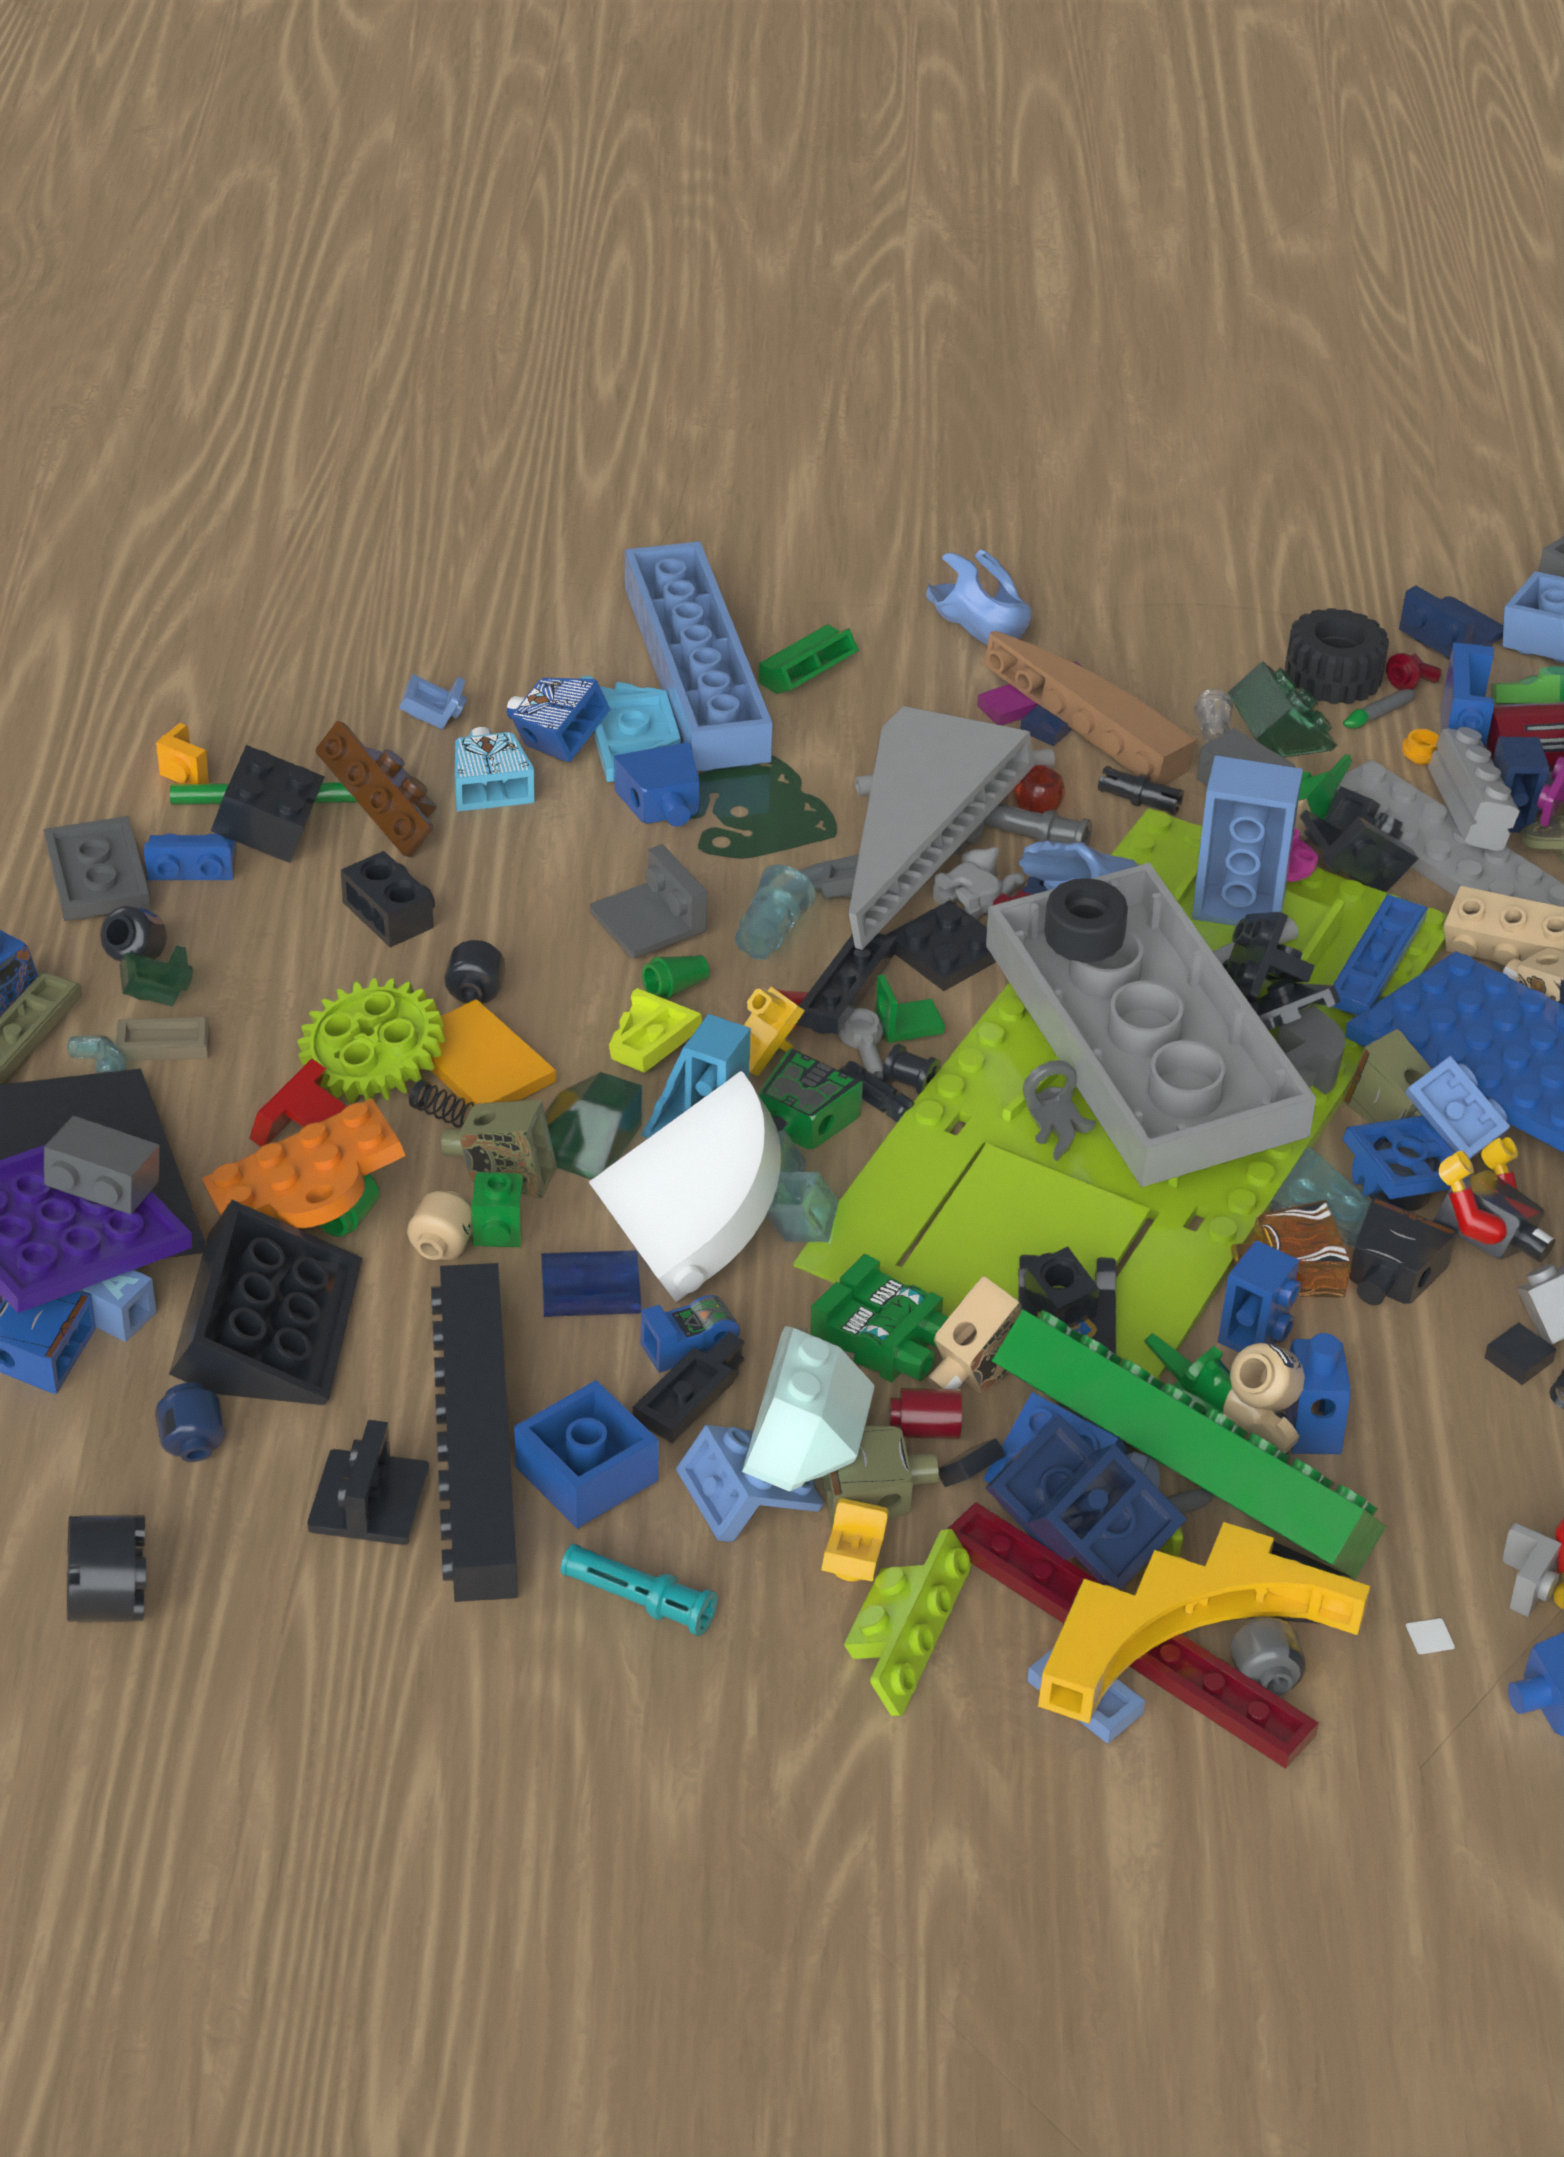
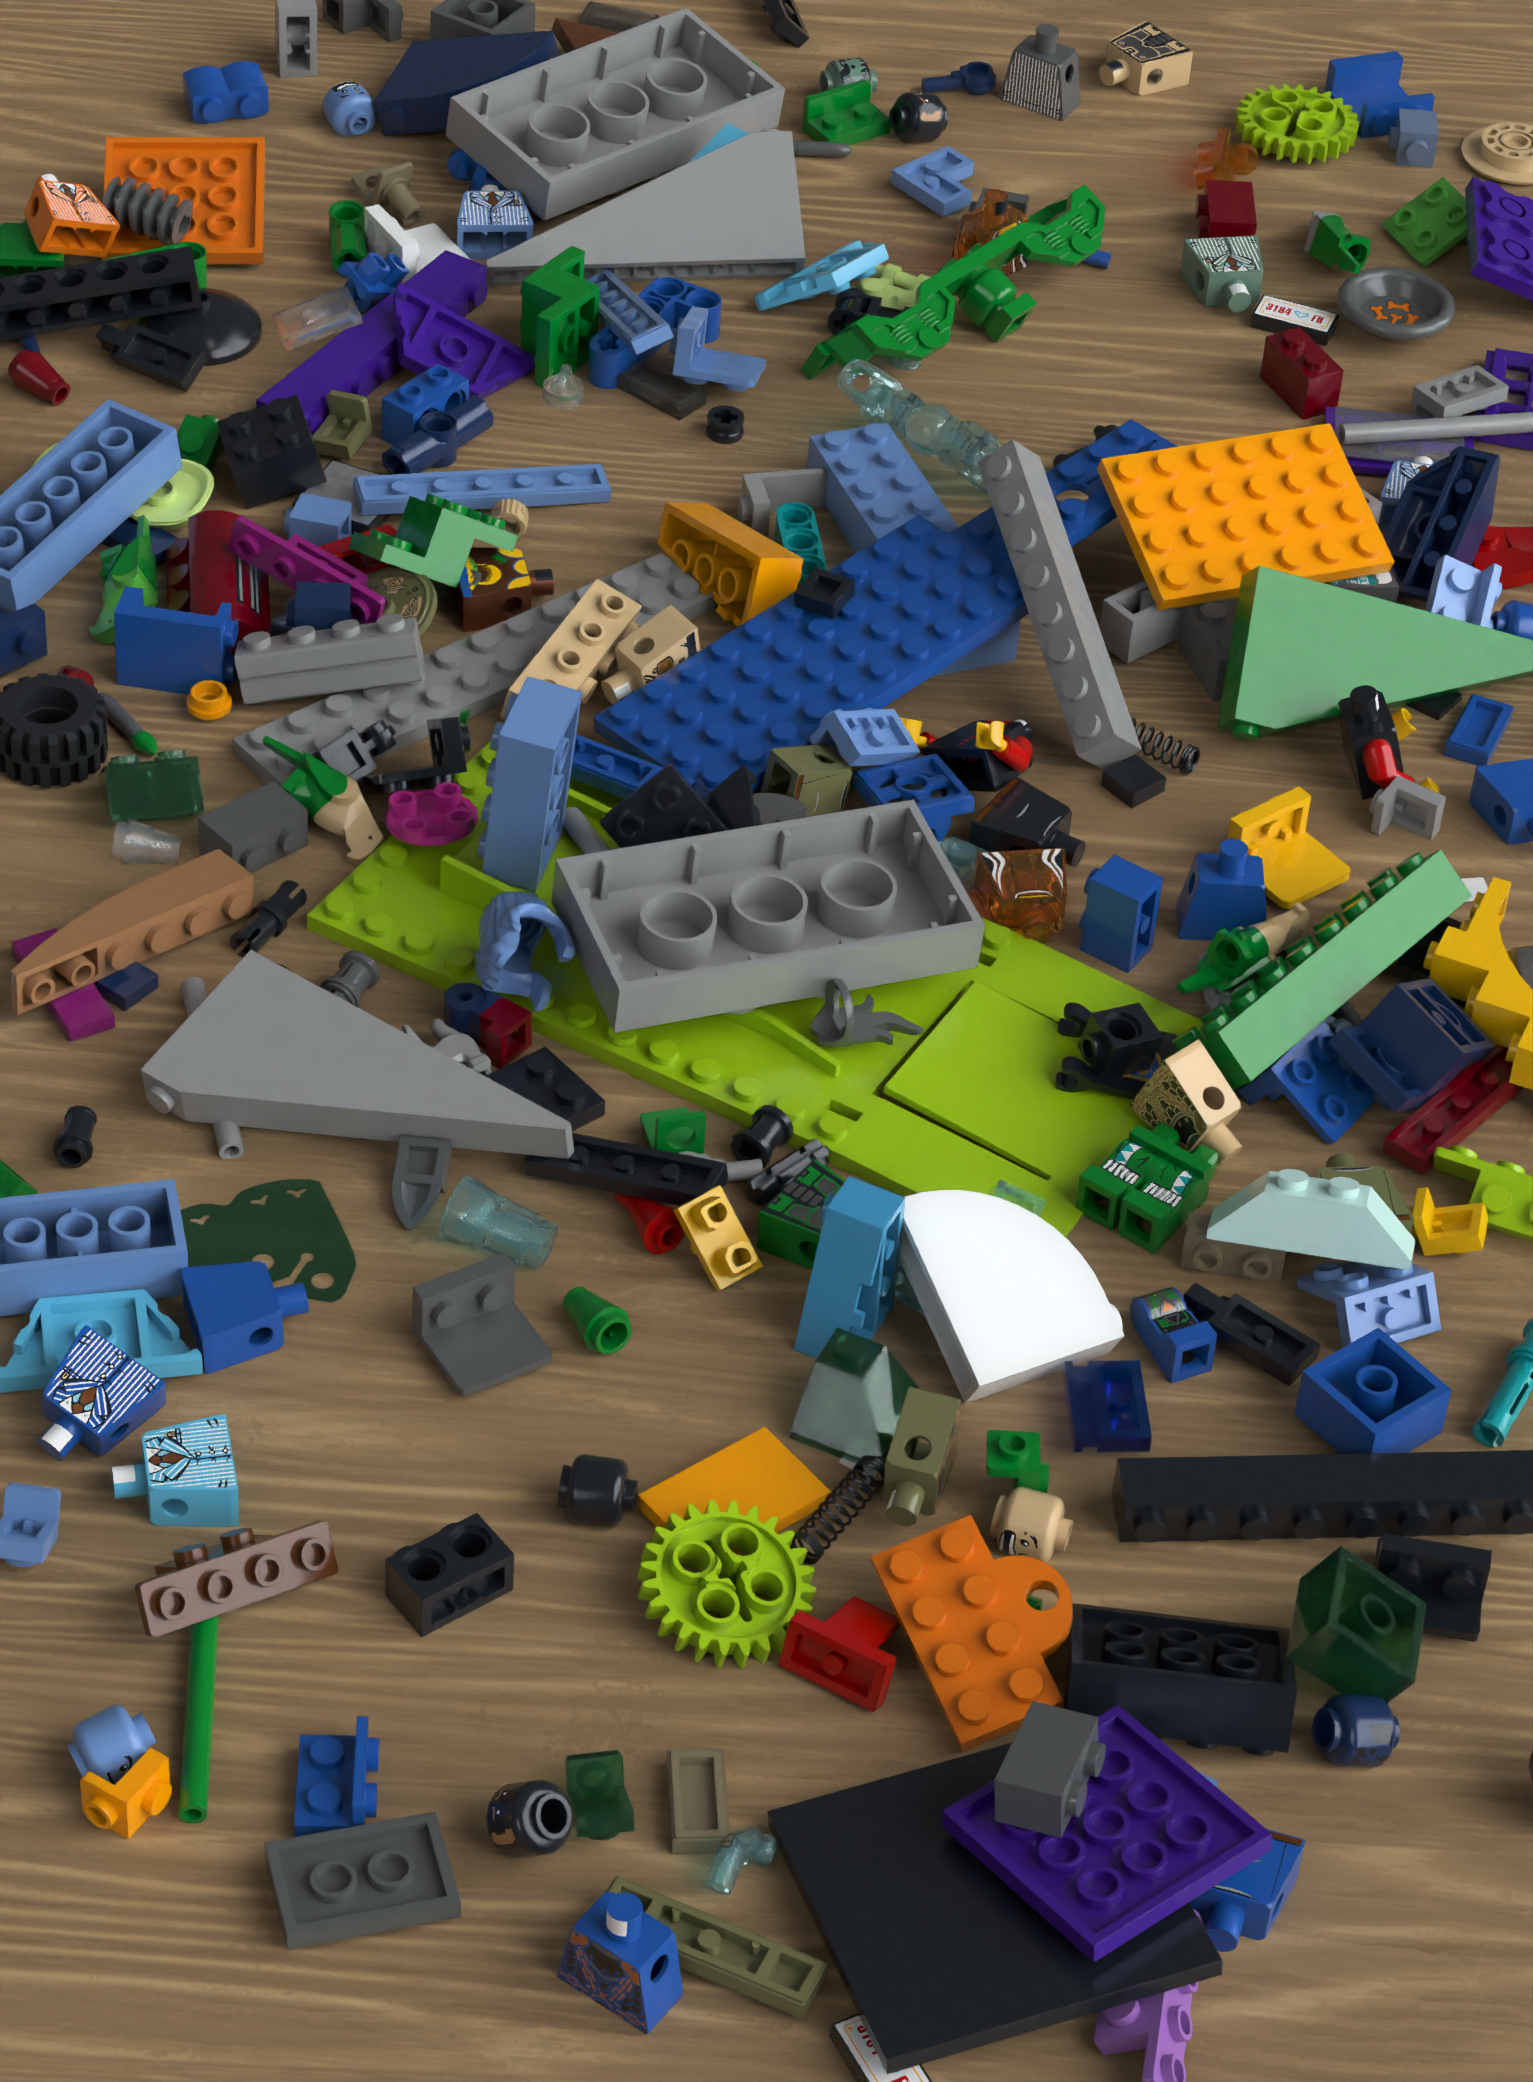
camera: 90 degrees left, 0 degrees up
(223, 743) = (110, 1743): none -> medium blue head
(267, 803) = (270, 1681): black piece -> none
(284, 1408) = (1356, 1628): none -> clear green brick
(651, 1030) = (693, 1345): neon yellow wing -> none
(854, 705) = (74, 1144): none -> black pin
(927, 1413) = (1267, 1149): dark red brick -> none
(970, 1462) = (1330, 1134): black tile -> none
(1086, 920) = (674, 906): black tyre -> none
(1267, 1377) = (1256, 901): tan head -> none
(1422, 1456) = (1292, 860): none -> yellow bracket

